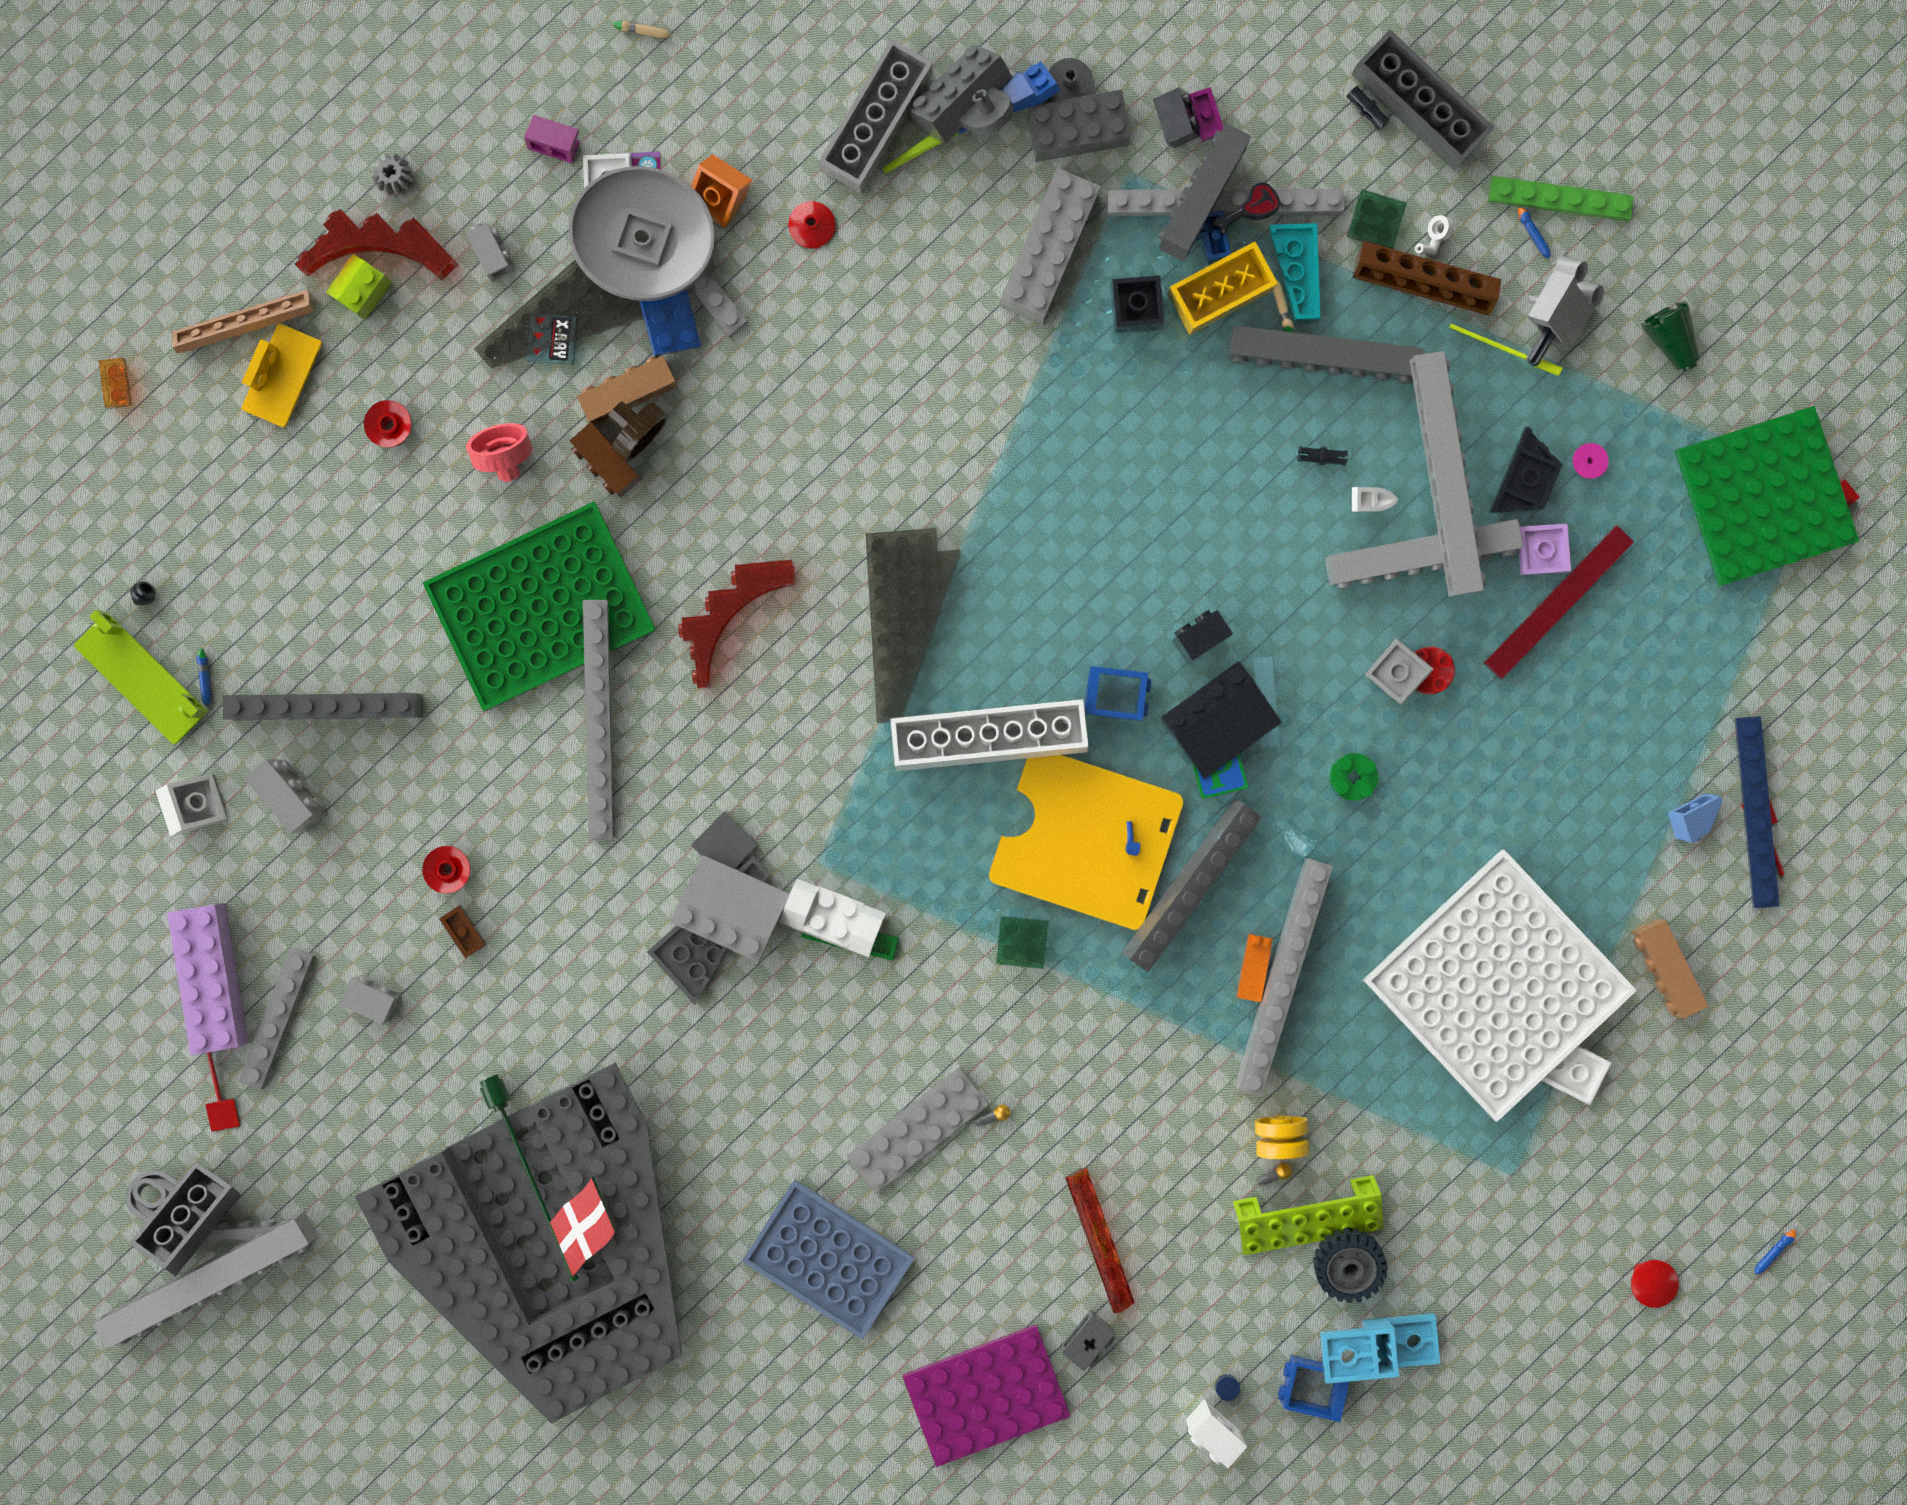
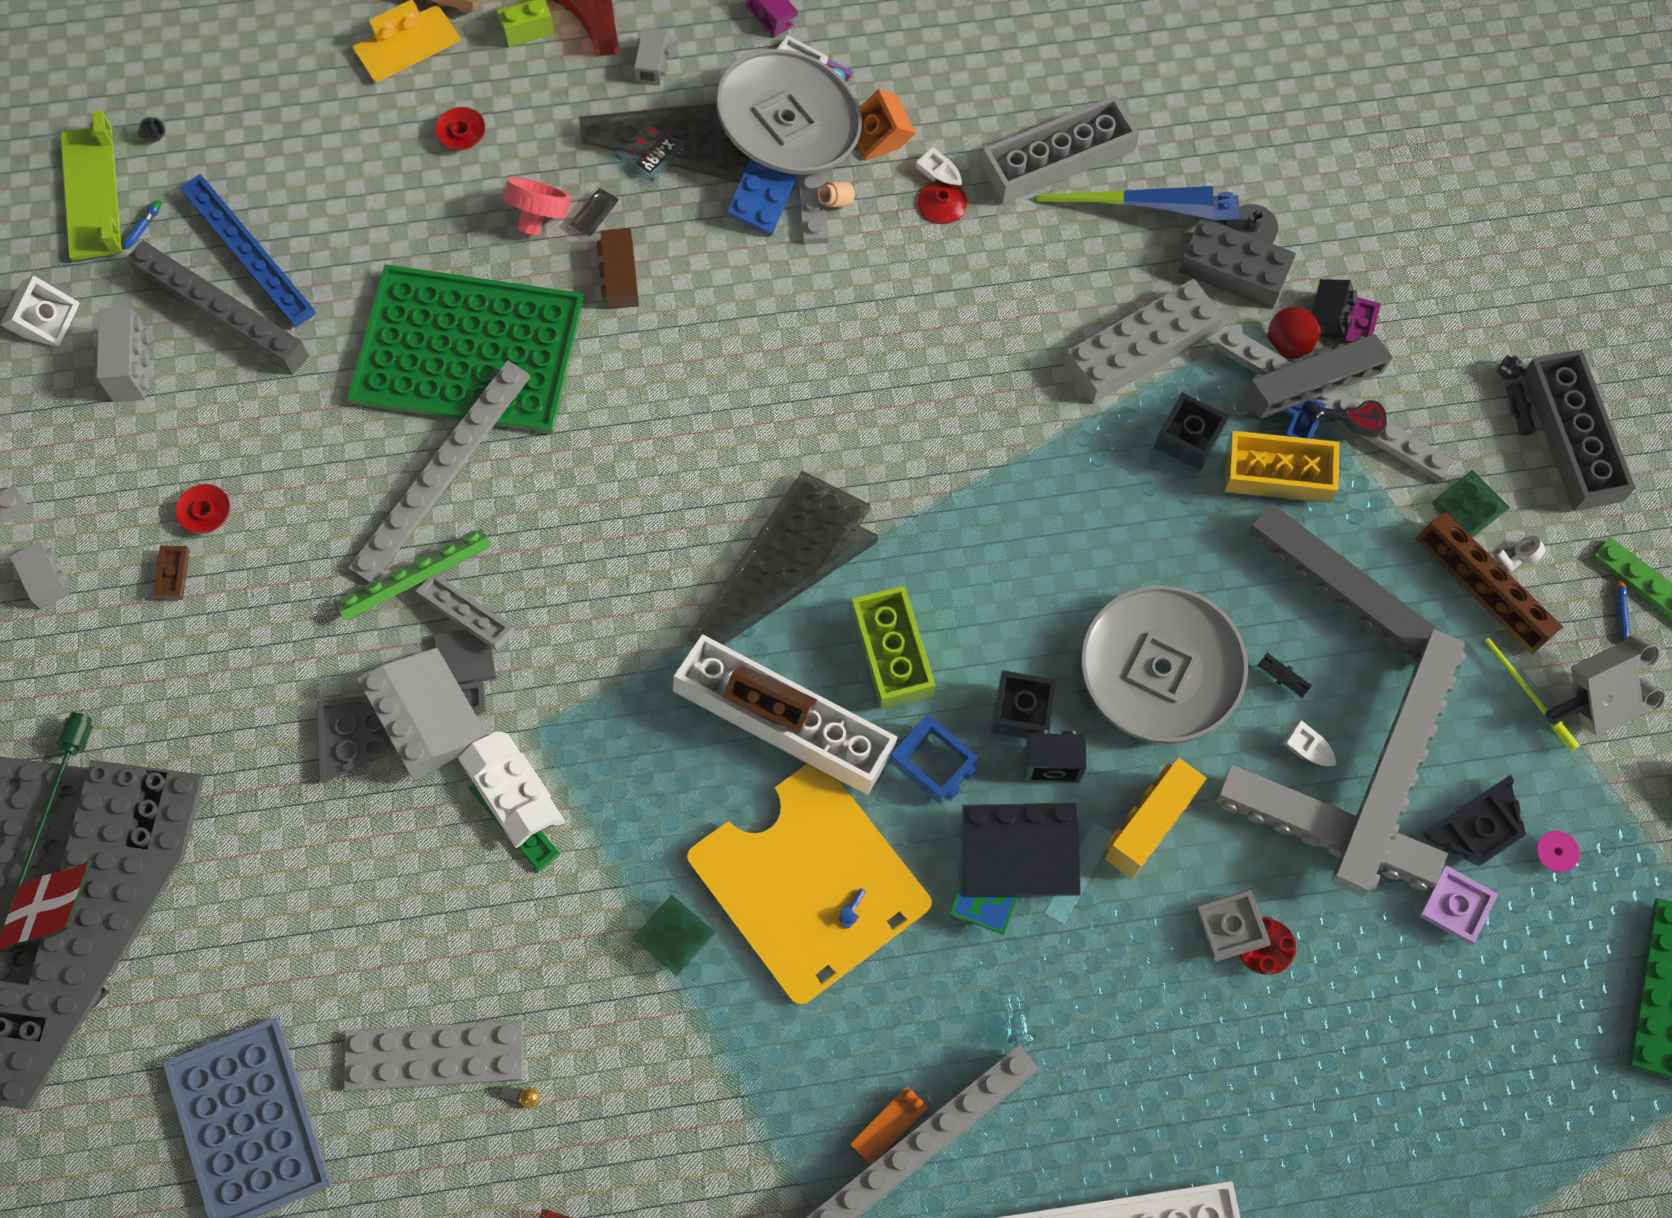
camera: 30 degrees right, 20 degrees down
(304, 642) = (248, 250): none -> blue plate
(548, 423) = (594, 211): none -> clear smoke tile
(632, 388) = (682, 227): medium nougat brick -> none
(637, 429) = (665, 256): dark brown piece -> none
(640, 811) = (405, 578): none -> bright green plate
(701, 814) = (465, 611): none -> light grey plate
(704, 631) = (627, 449): clear red arch -> none
(728, 279) = (836, 194): none -> light nougat brick
(791, 198) = (938, 167): none -> white plate
(966, 97) = (1148, 176): dark grey brick -> none
(979, 739) = (770, 698): none -> reddish brown brick
(1031, 630) = (893, 647): none -> lime brick
(1154, 611) = (1023, 704): none -> black brick
(1159, 160) = (1294, 332): none -> red dish
(1191, 885) = (881, 992): dark grey brick -> none
(1240, 475) = (1173, 628): none -> light grey dish
(1287, 323) = (1331, 519): tan piece -> none
(1299, 264) = (1369, 494): teal wing -> none
(1299, 632) = (1158, 812): none -> yellow brick
(1341, 77) = (1511, 368): none -> black plate
(1365, 769) = (1136, 999): green plate -> none
(1558, 602) = (1443, 968): dark red tile -> none

